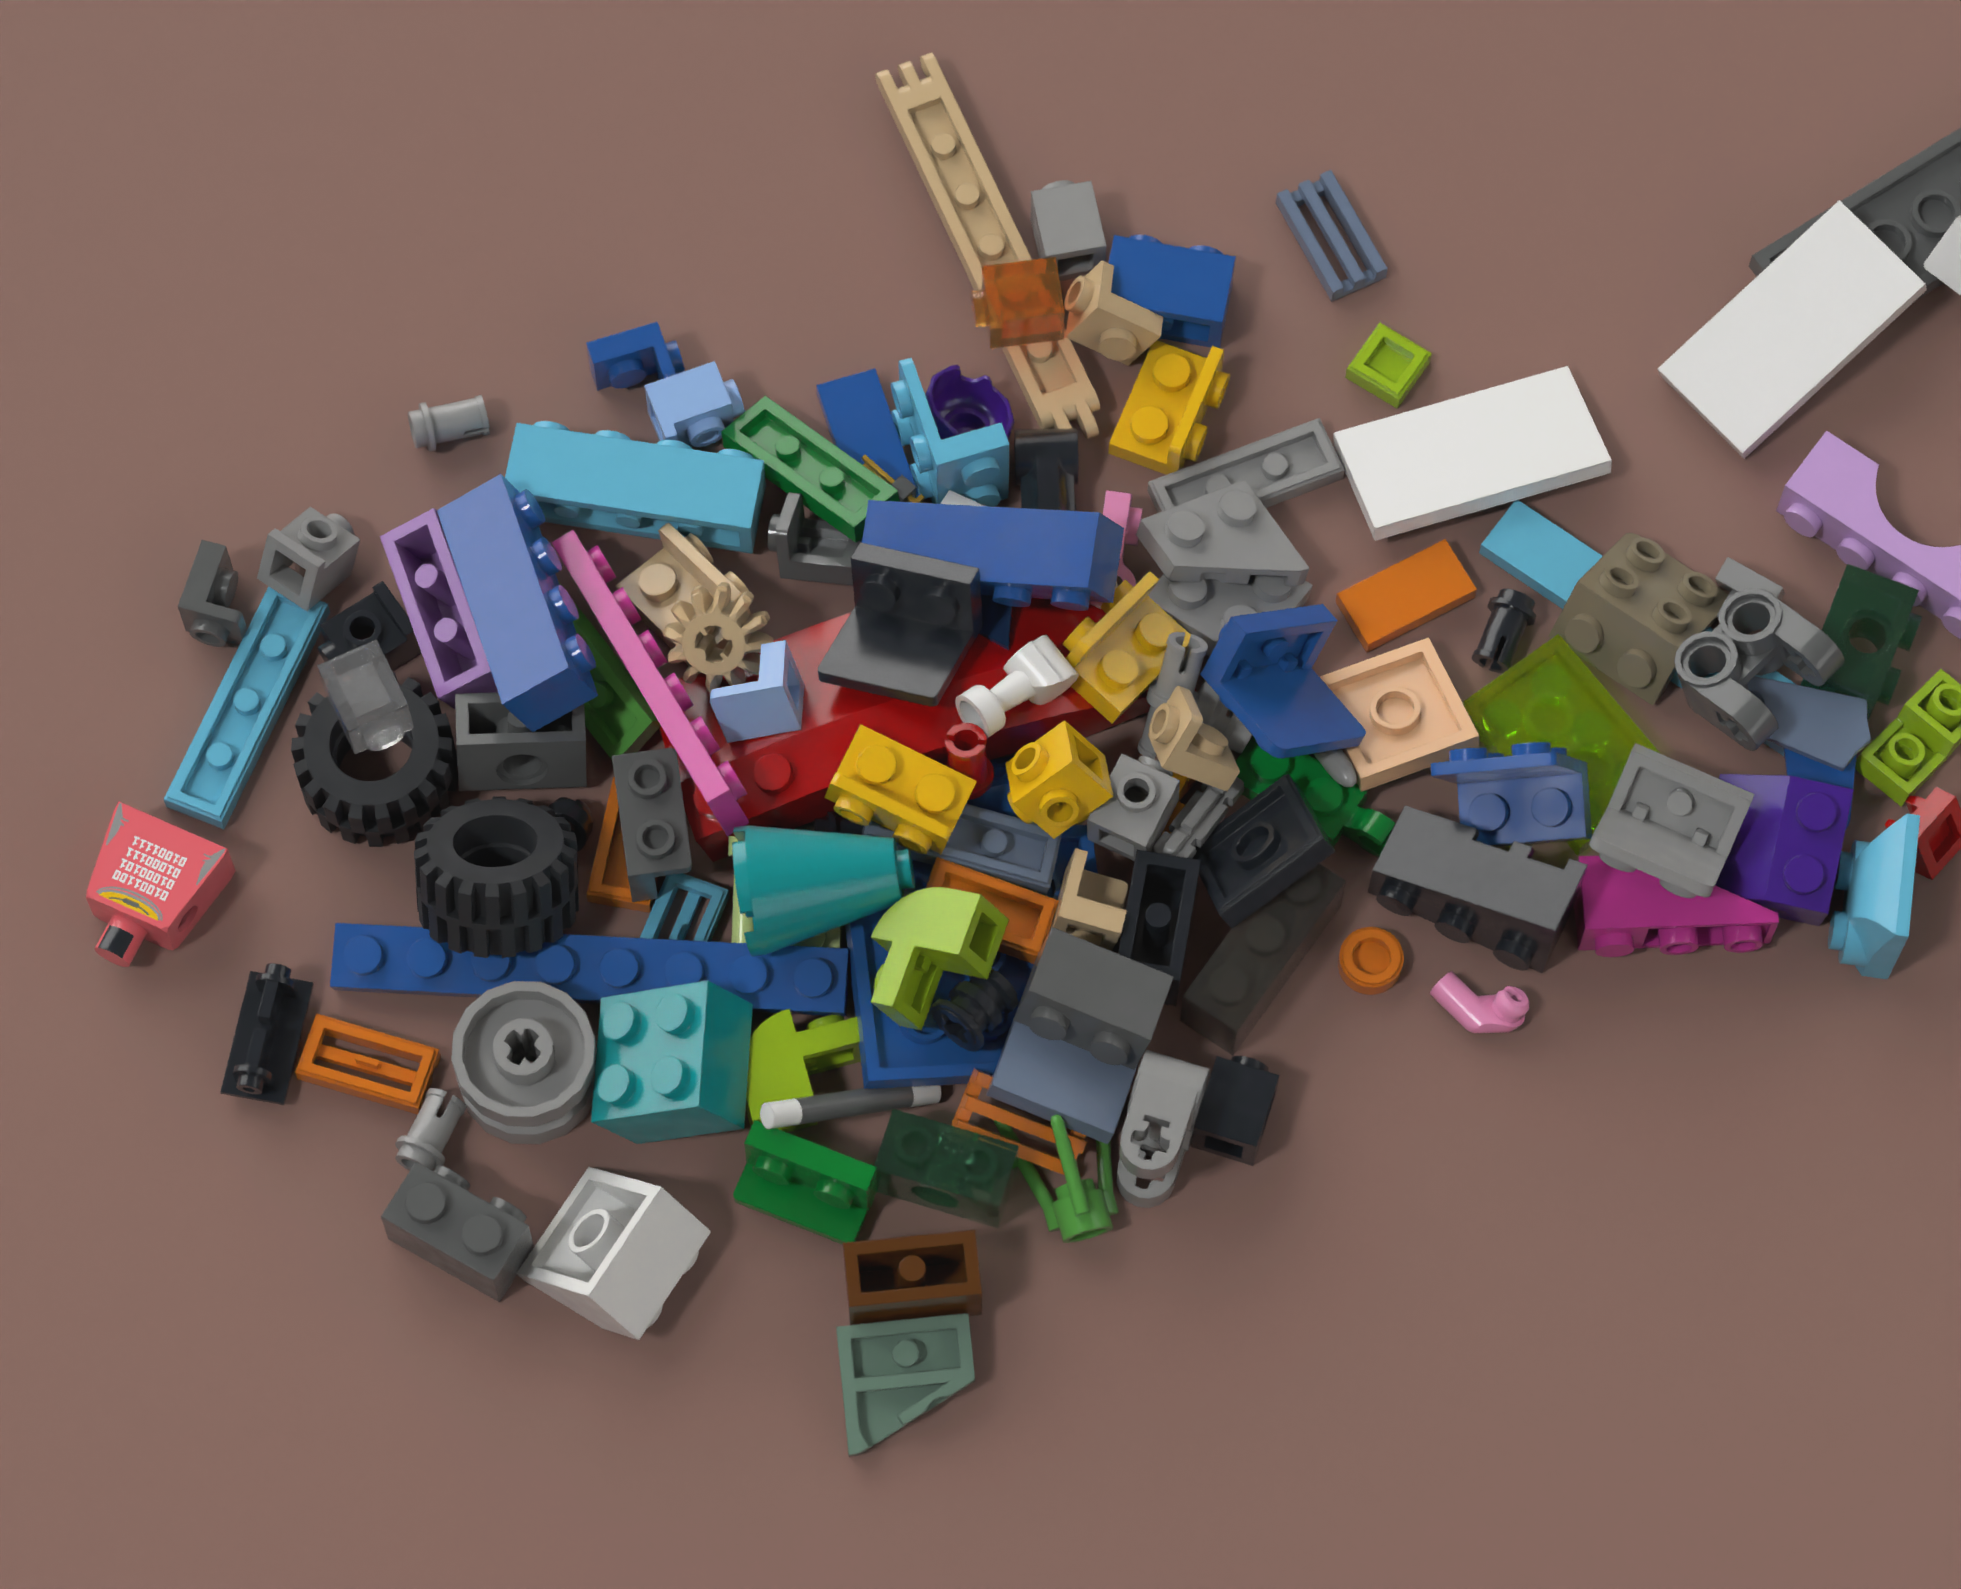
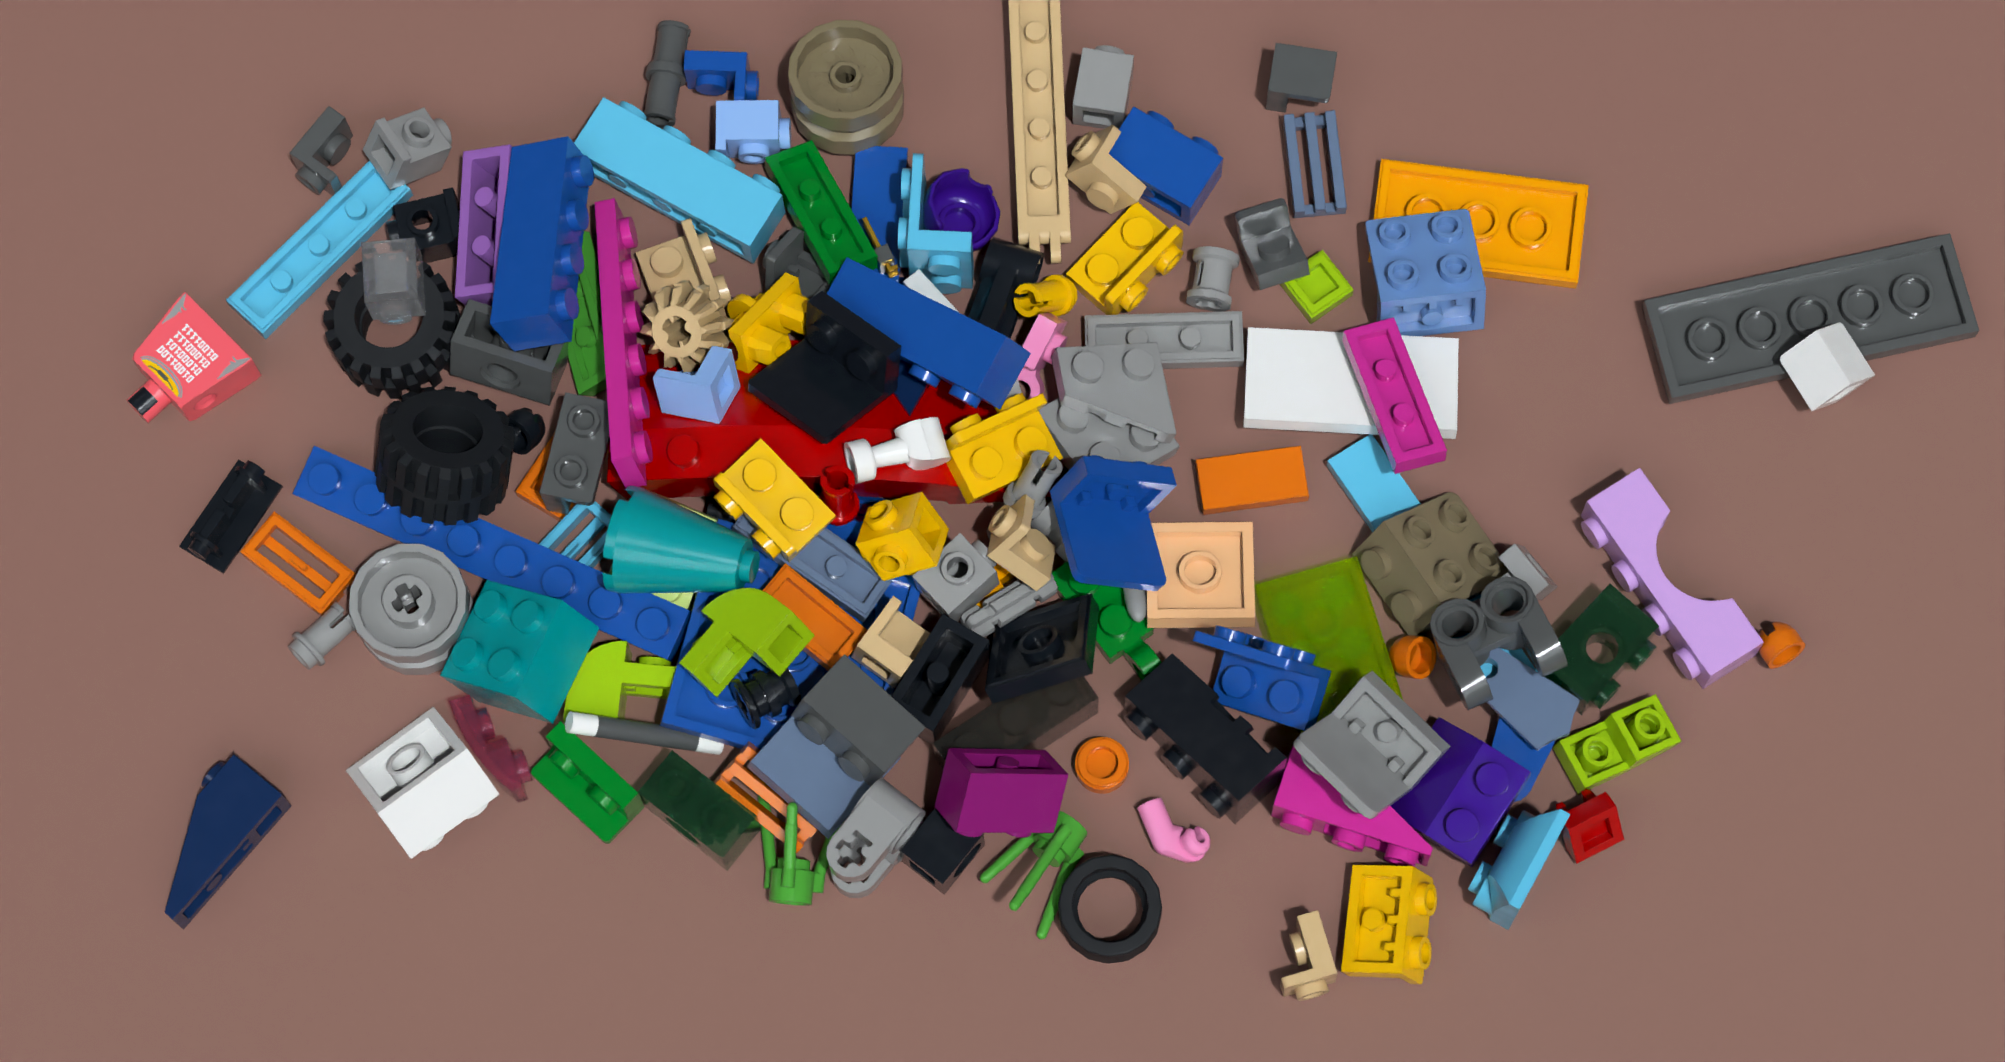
camera: 25 degrees right, 5 degrees up
(408, 1375) = (225, 827): none -> dark blue slope
(448, 422) = (559, 75): light grey pin -> none
(459, 1230) = (309, 722): dark grey brick -> none
(568, 375) = (666, 73): none -> dark grey pin
(704, 1198) = (503, 765): none -> clear pink slope
(784, 322) = (846, 86): none -> dark tan wheel
(802, 603) = (764, 322): none -> yellow hips
(900, 1373) = (601, 958): sand green wing -> none
(912, 1277) = (636, 889): reddish brown brick -> none
(1020, 303) = (1035, 136): clear orange brick -> none
(1103, 470) = (1052, 295): none -> yellow pin
(1273, 393) = (1212, 278): none -> light grey bush
(1278, 142) = (1300, 74): none -> dark grey panel
(1283, 1019) = (1001, 791): none -> magenta brick
(1322, 336) = (1270, 244): none -> dark grey bracket
(1357, 1064) = (1051, 850): none -> bright green plant
(1459, 1064) = (1110, 867): none -> black tyre
(1504, 629) = (1319, 535): black pin -> none
(1507, 308) = (1427, 272): none -> medium blue bracket
(1531, 445) = (1394, 395): none -> dark pink plate
(1535, 238) = (1520, 224): none -> light orange tile
(1663, 720) = (1413, 656): none -> orange hinge
(1691, 1073) = (1310, 948): none -> tan bracket
(1758, 1015) = (1388, 923): none -> yellow bracket
(1792, 329) = (1649, 373): white tile -> none

